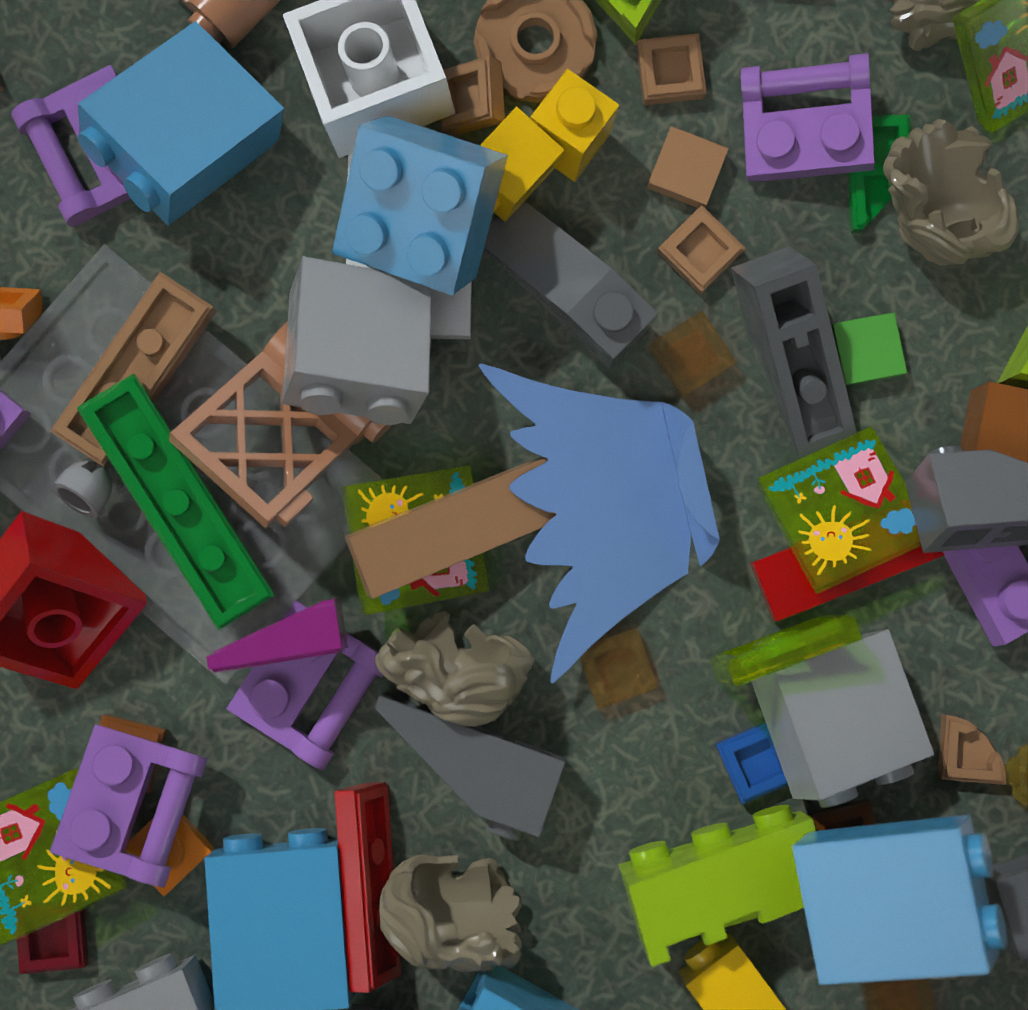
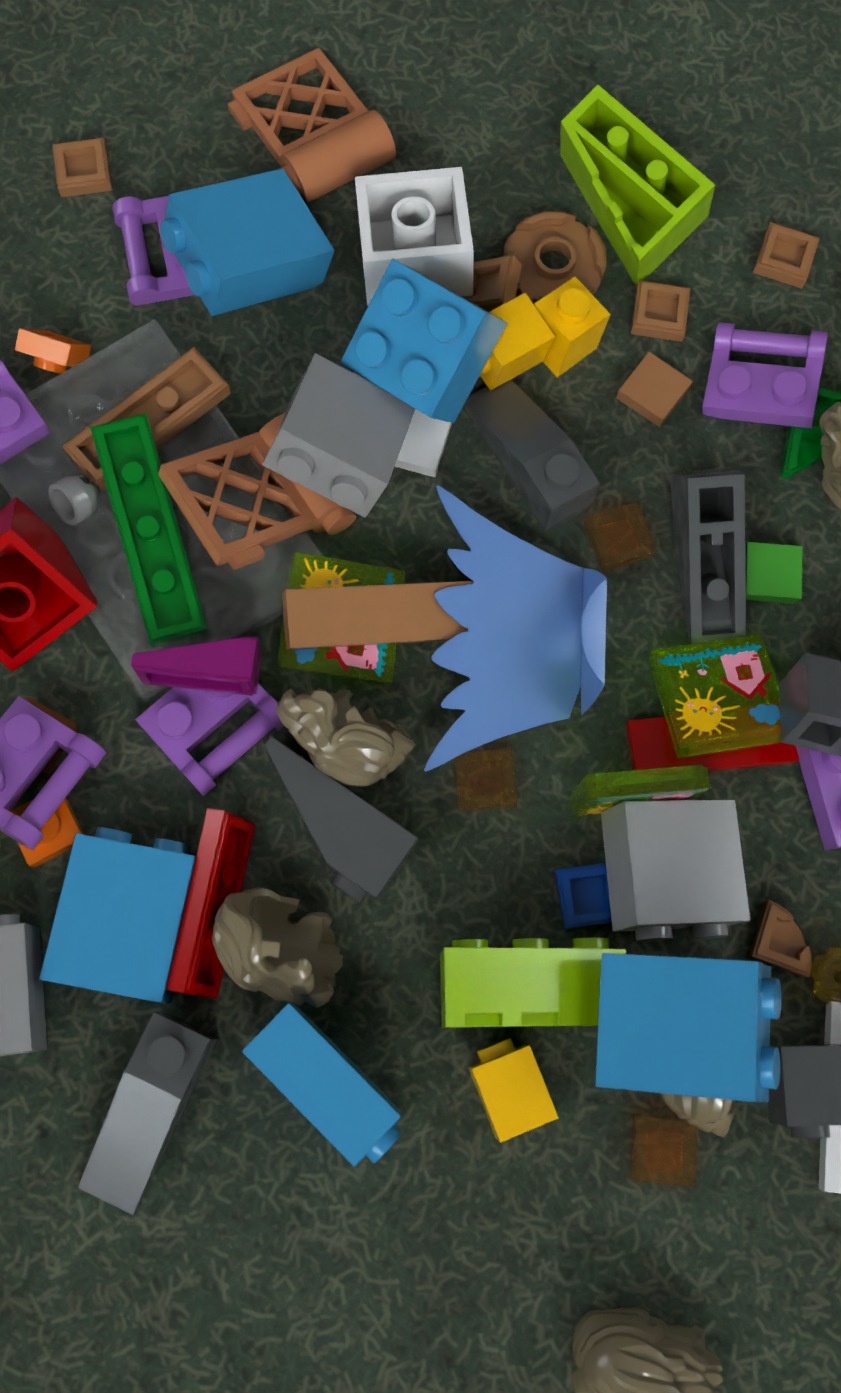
camera: 15 degrees right, 10 degrees down
(701, 250) = (648, 456): medium nougat tile -> none

